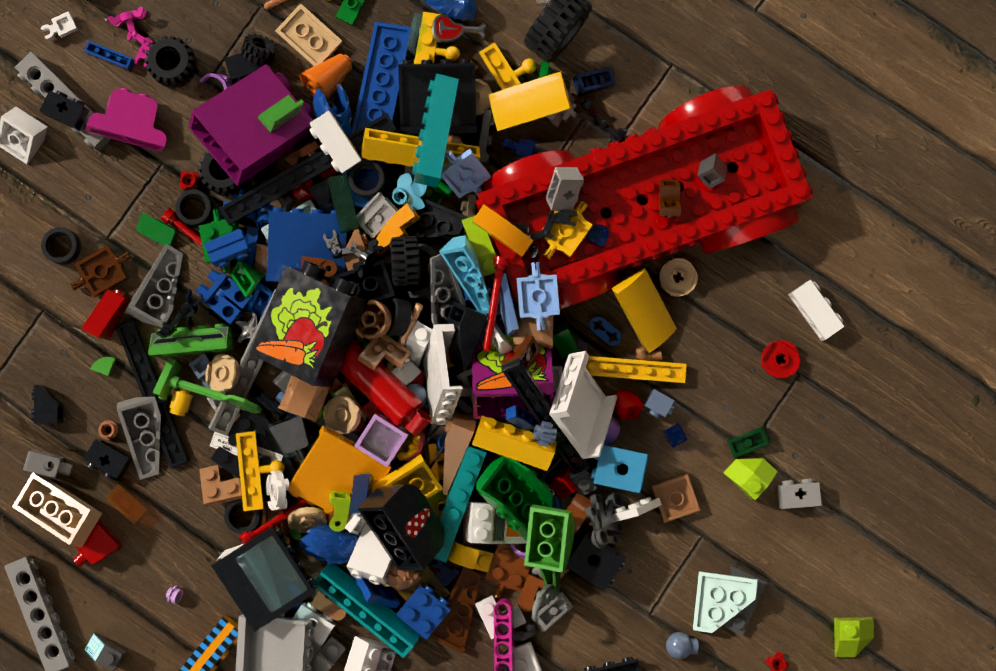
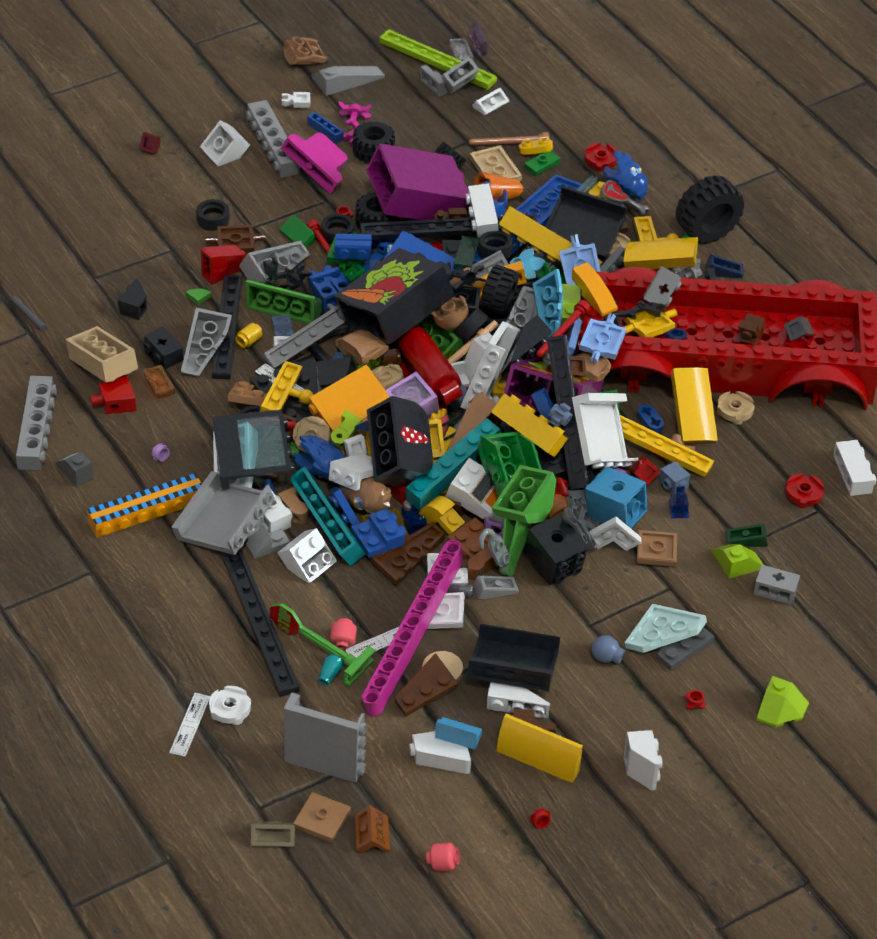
camera: 25 degrees right, 40 degrees down
(38, 461) = (111, 323): light grey torso -> none
(54, 105) = (270, 132): black brick -> none
(102, 430) = (176, 332): nougat plate -> none
(169, 379) = (302, 333): bright green piece -> none
(222, 373) = (299, 321): tan tile -> none
(276, 487) = (299, 400): white plate -> none
(280, 113) = (449, 177): bright green panel -> none
(384, 348) = (448, 339): medium nougat plate -> none
(436, 130) = (577, 221): teal brick -> none

